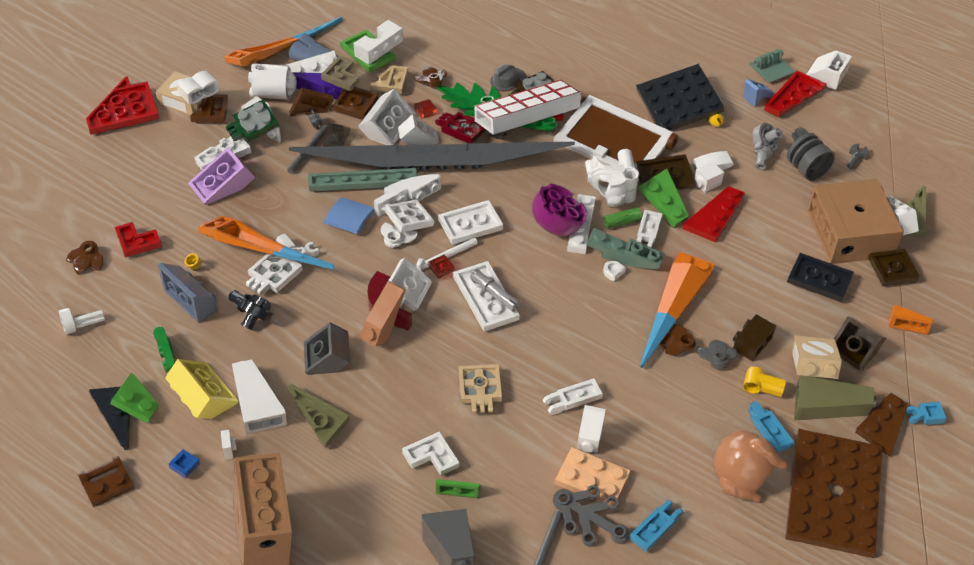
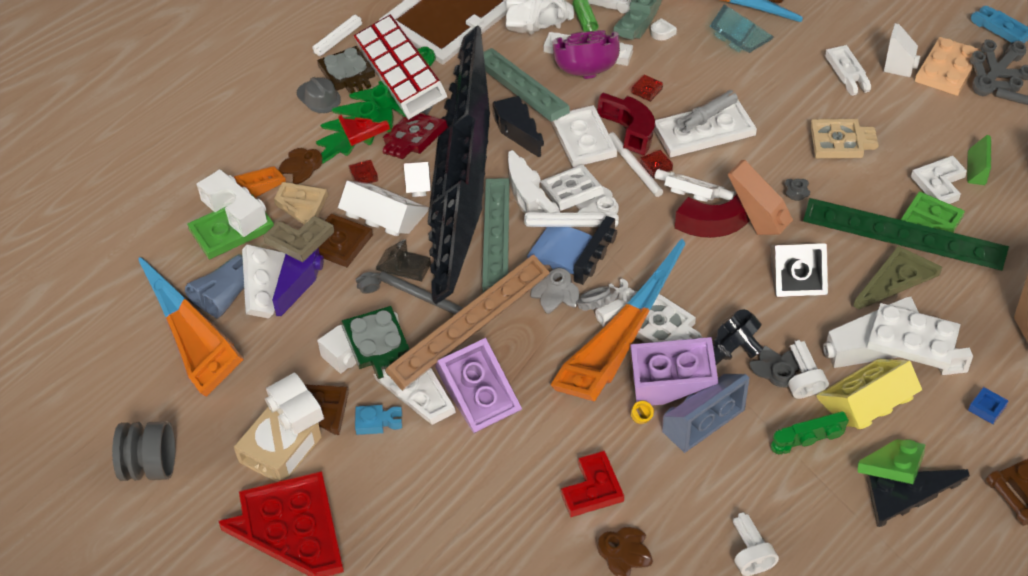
camera: 80 degrees left, 0 degrees up
(175, 36) = (144, 451): none -> dark grey wheel
(202, 136) = (374, 419): none -> dark azure plate
(215, 355) = (811, 379): none -> white piece
(219, 266) = (672, 369): none -> lavender slope
(234, 338) = (775, 367): none -> dark grey plate
(240, 408) = (914, 336): none -> white plate
(271, 81) = (287, 324): white cylinder -> none
(271, 165) = (466, 322): none -> medium nougat plate
(295, 233) = (597, 298): none -> light grey gear
(308, 100) = (336, 281): reddish brown wing -> none
(310, 214) = (554, 293): none -> light grey plate
(345, 232) = (595, 250): none -> black plate
(363, 426) = (906, 234): none -> dark green plate
(372, 215) = (539, 219): none -> white axle
(388, 443) = (933, 213): none -> bright green wing
(402, 52) = (258, 181): none -> orange slope
(421, 359) = (797, 189): none -> dark grey plate
(464, 98) = (362, 128): none -> red tile
(473, 252) = (633, 116): none -> dark red arch
(478, 182) = (514, 123): none -> black slope
(521, 179) = (524, 86): none -> sand green plate
(532, 259) = (647, 88): none -> clear red plate
(575, 79) = (337, 35): none -> white axle
(615, 320) = (739, 30): none -> clear light blue slope

